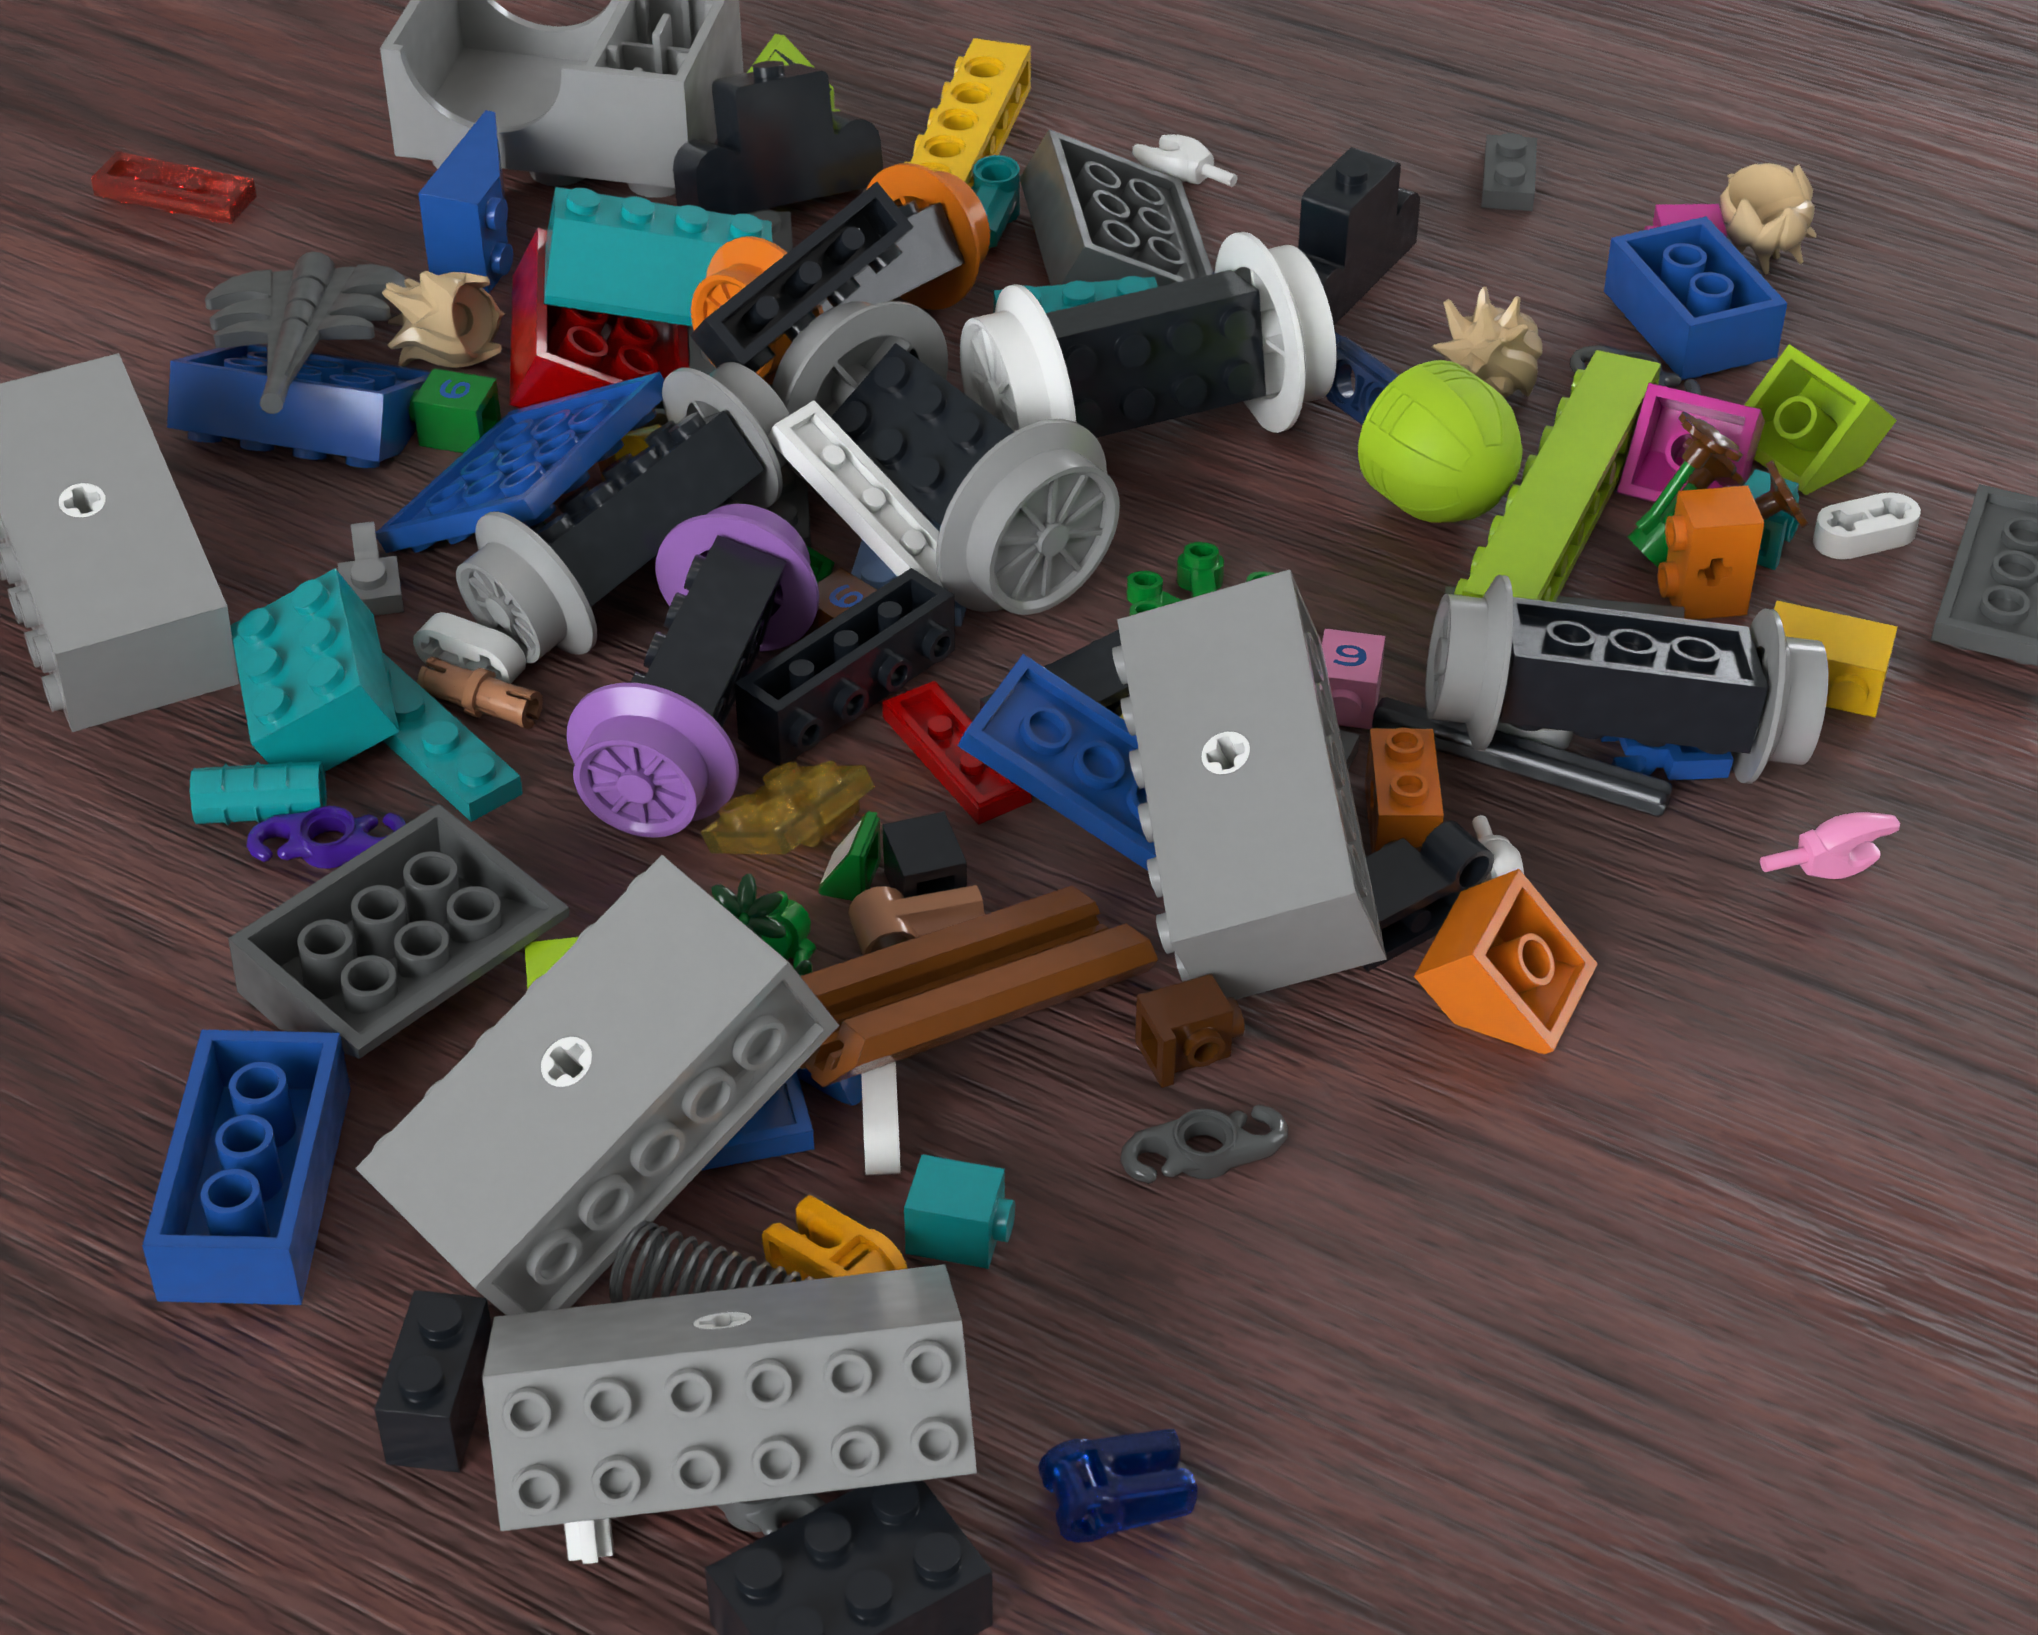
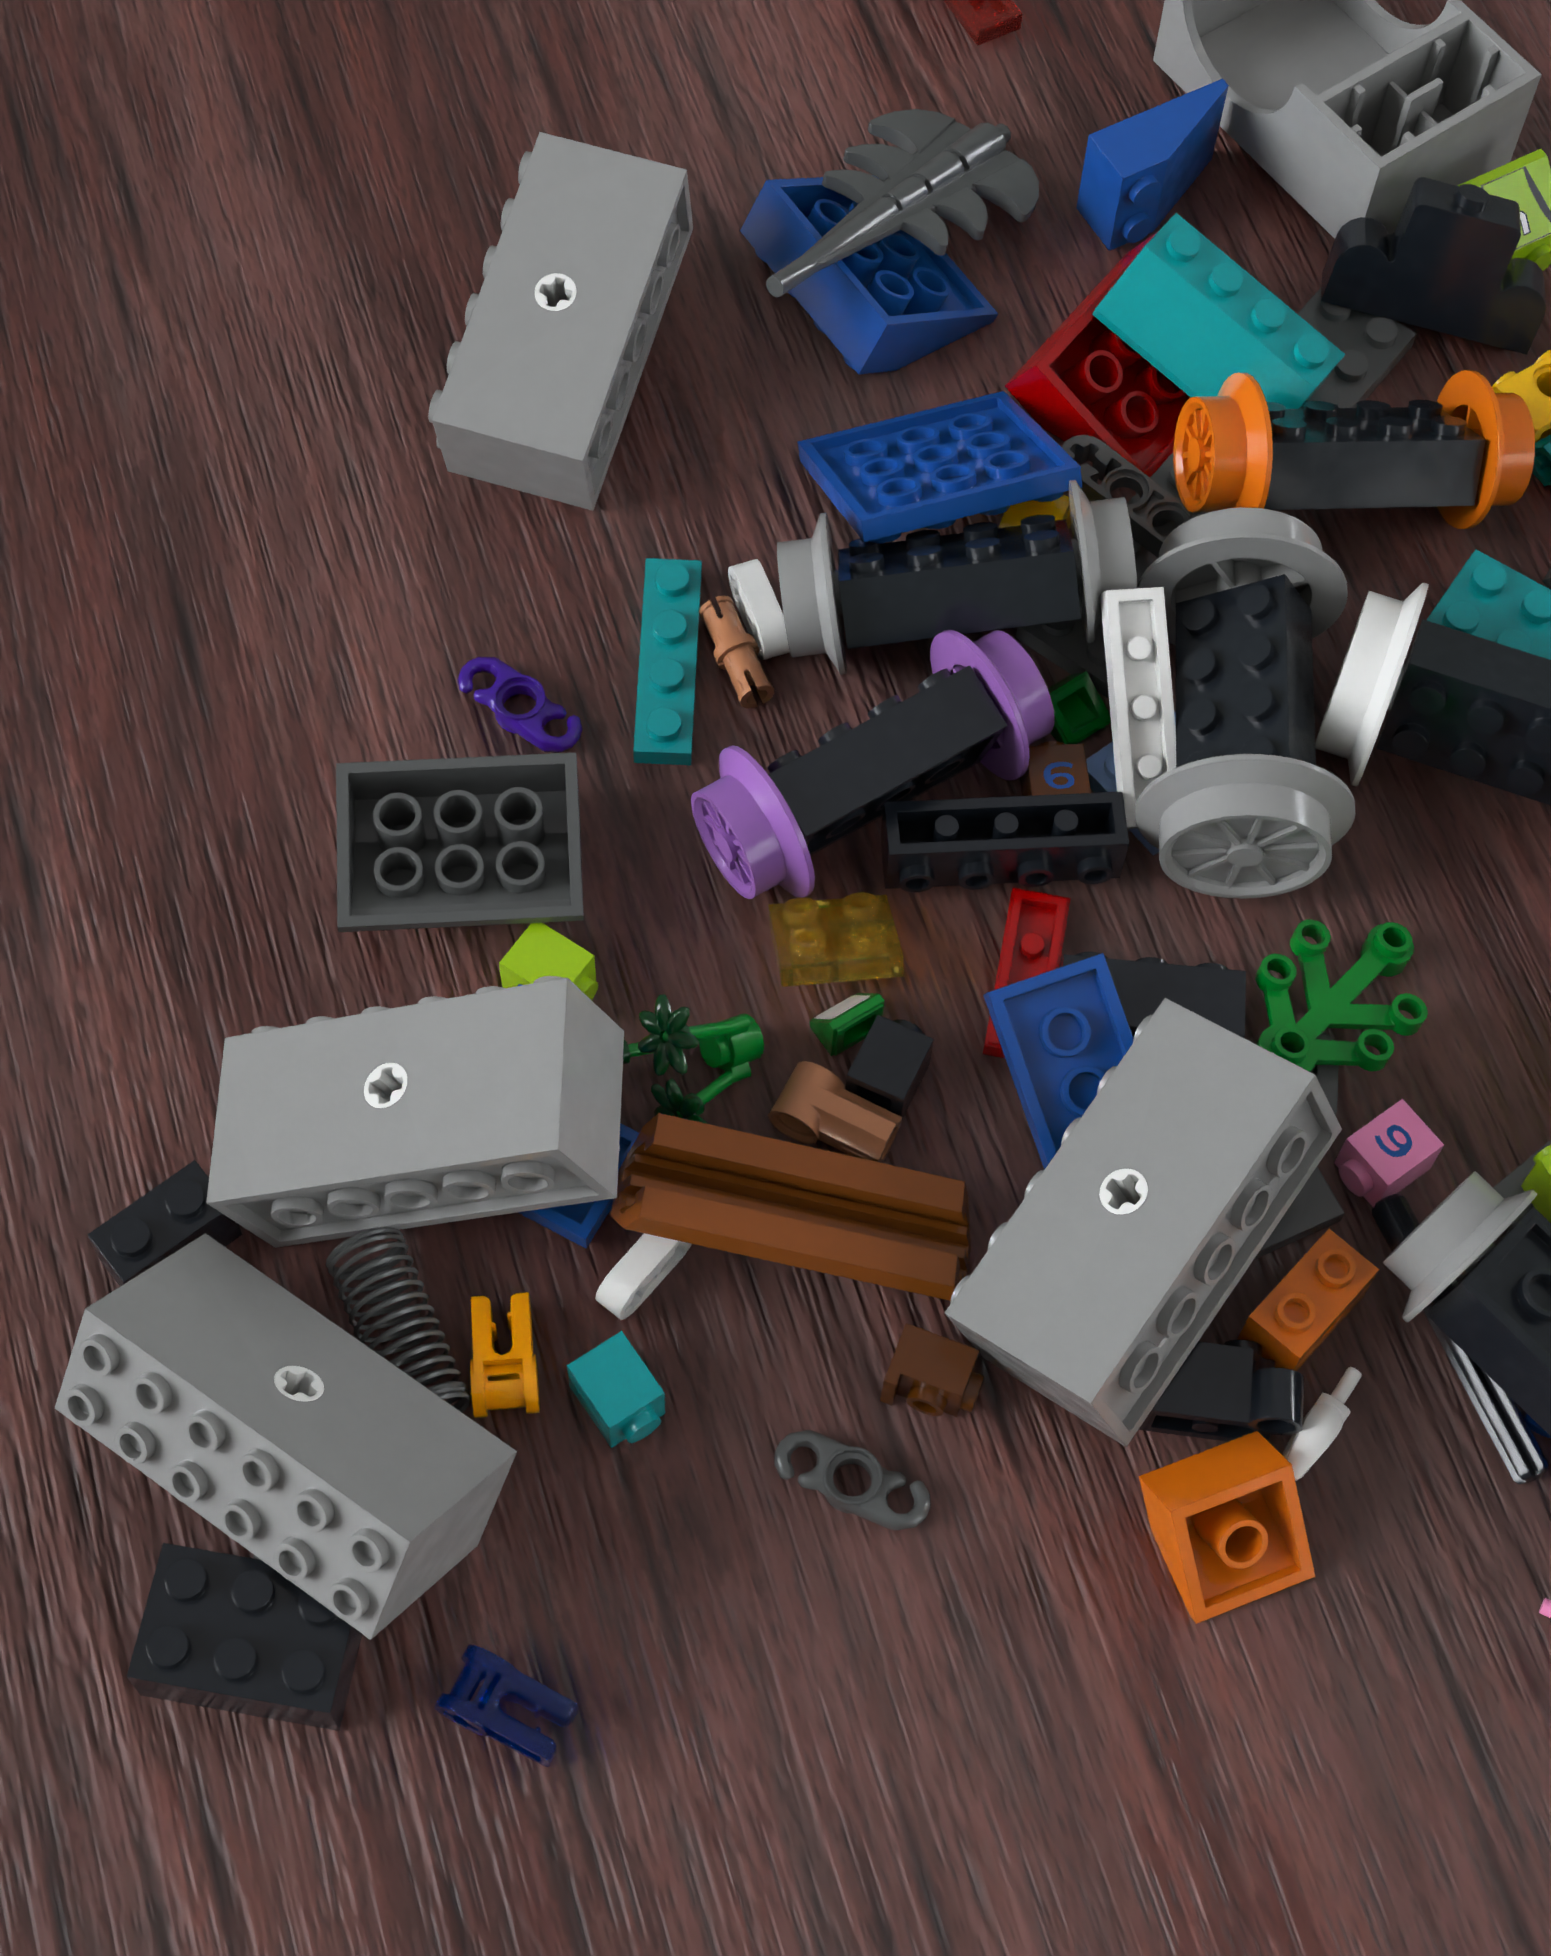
camera: 40 degrees right, 20 degrees up
(248, 1168) = (204, 960): blue brick -> none
(256, 791) = (504, 629): teal axle -> none
(314, 675) = (615, 559): teal brick -> none
(372, 577) = (760, 485): light grey plate -> none
(445, 319) = (1026, 267): tan hair -> none
(454, 409) = (960, 361): green brick -> none
(803, 279) = (1247, 467): black brick -> none

